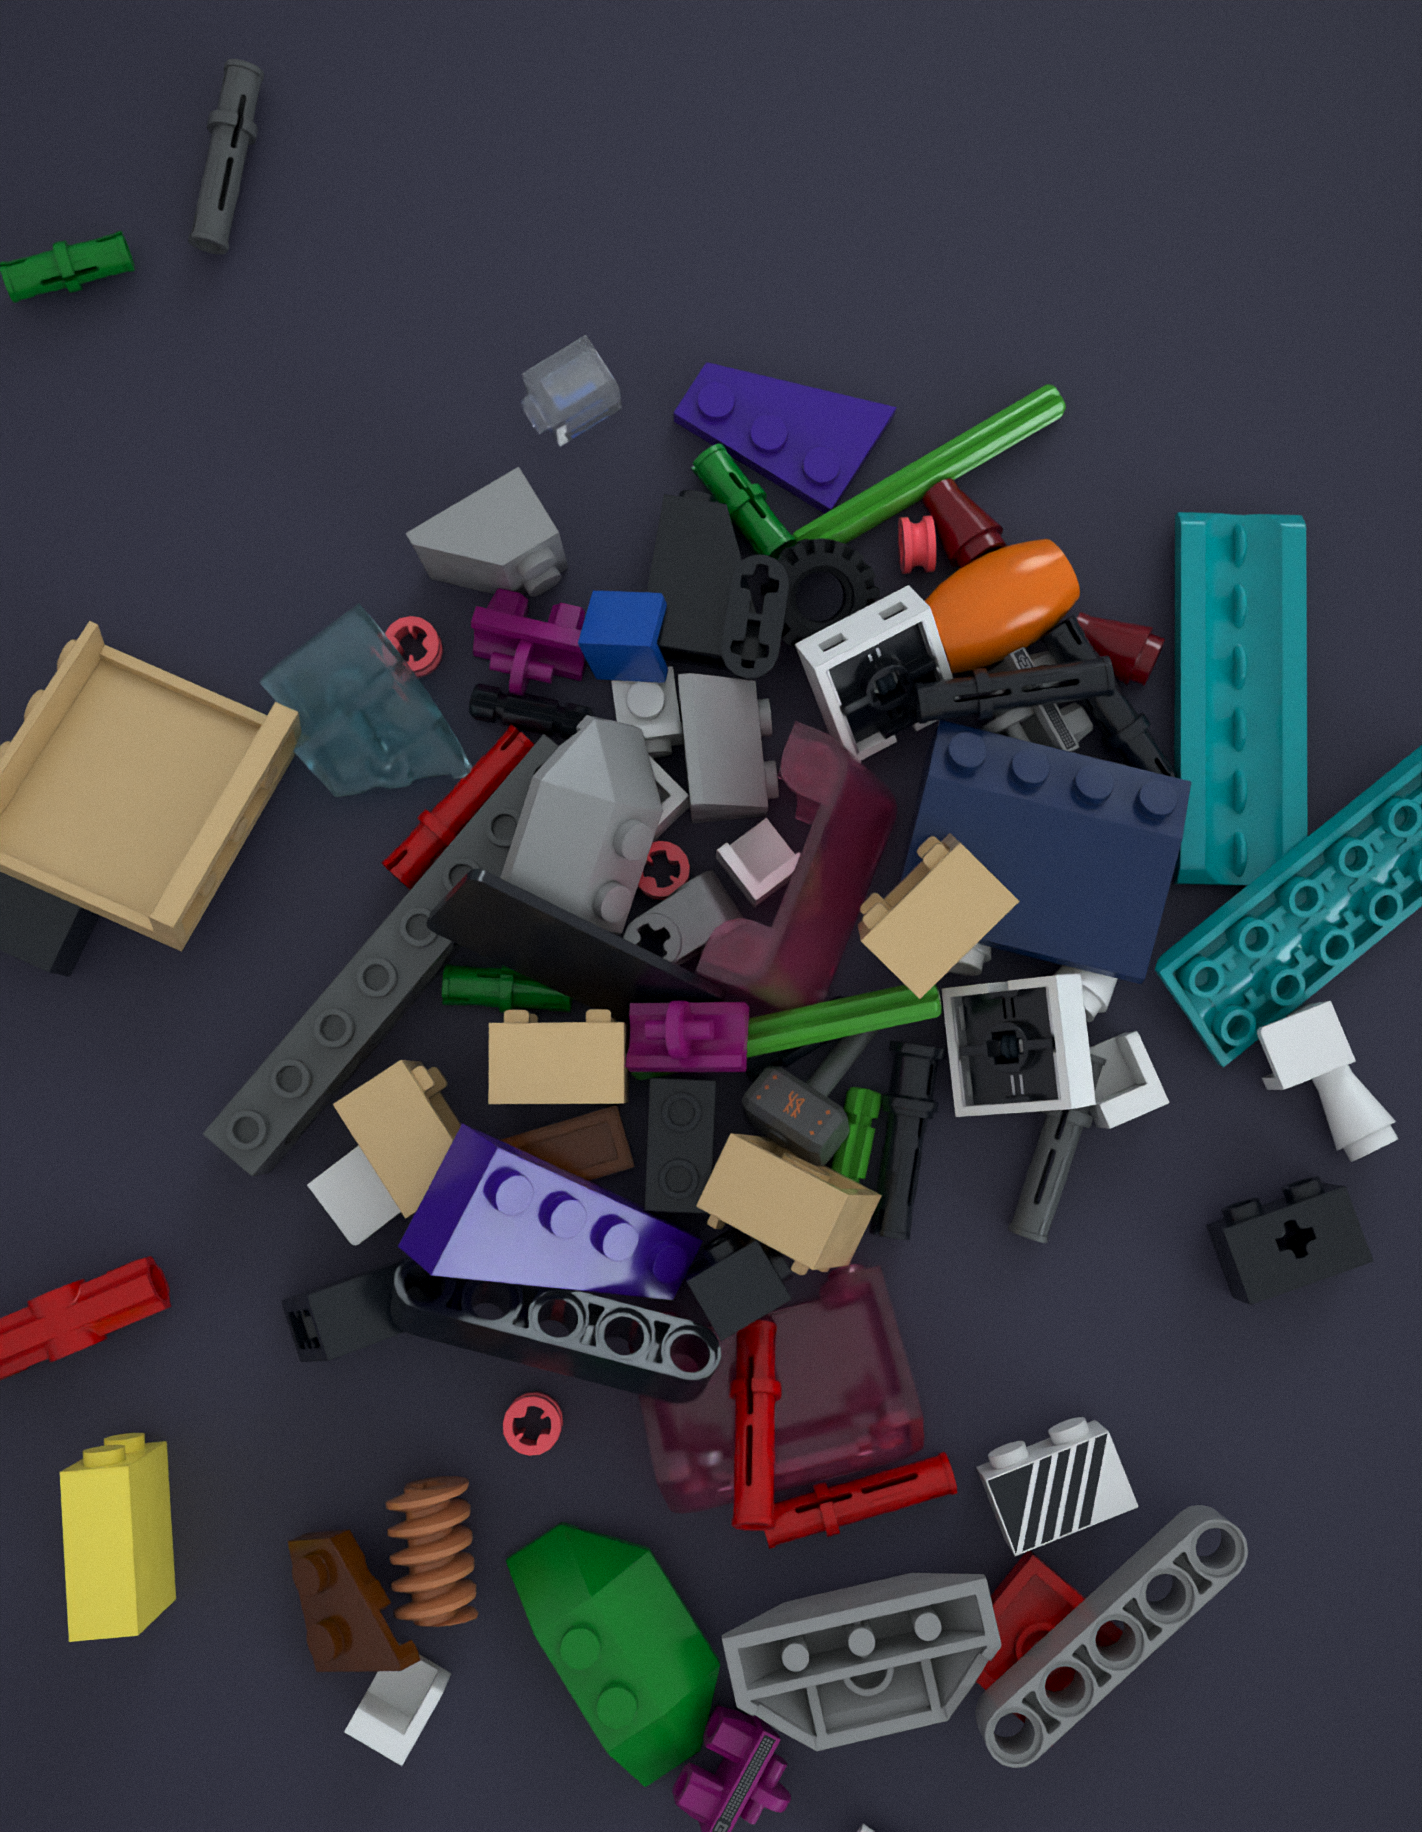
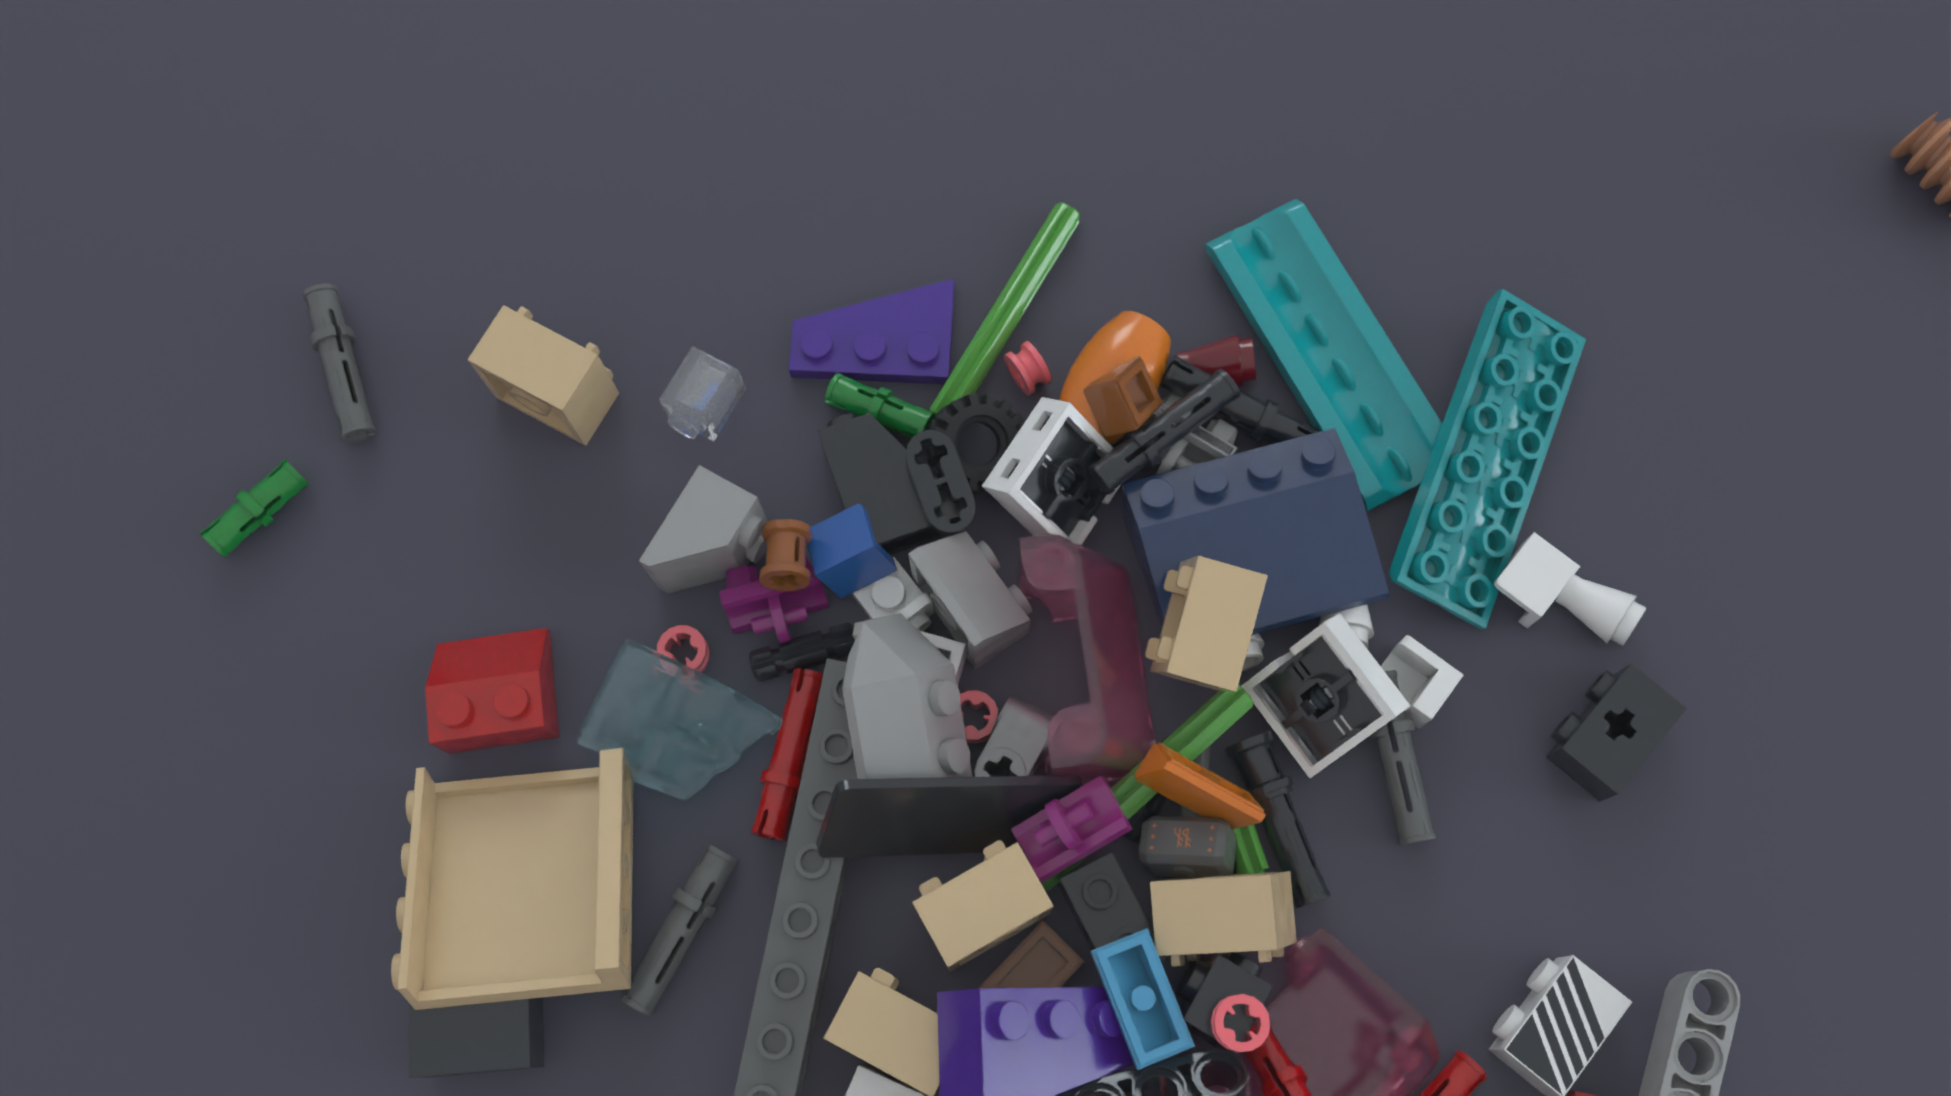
camera: 25 degrees left, 10 degrees down
(205, 583) = (492, 692): none -> red slope
(284, 905) = (679, 929): none -> dark grey pin
(421, 282) = (544, 374): none -> tan container
(499, 989) = (900, 879): green pin -> none
(558, 606) = (785, 555): none -> dark orange bush
(658, 1239) = (1142, 999): none -> dark azure slope
(758, 862) = (1046, 668): white panel -> none
(758, 1313) = (1227, 1036): none -> coral bush
(837, 1065) = (1197, 788): none -> orange slope
(961, 524) = (1053, 336): dark red cone -> none
(991, 632) = (1123, 397): none -> dark orange slope

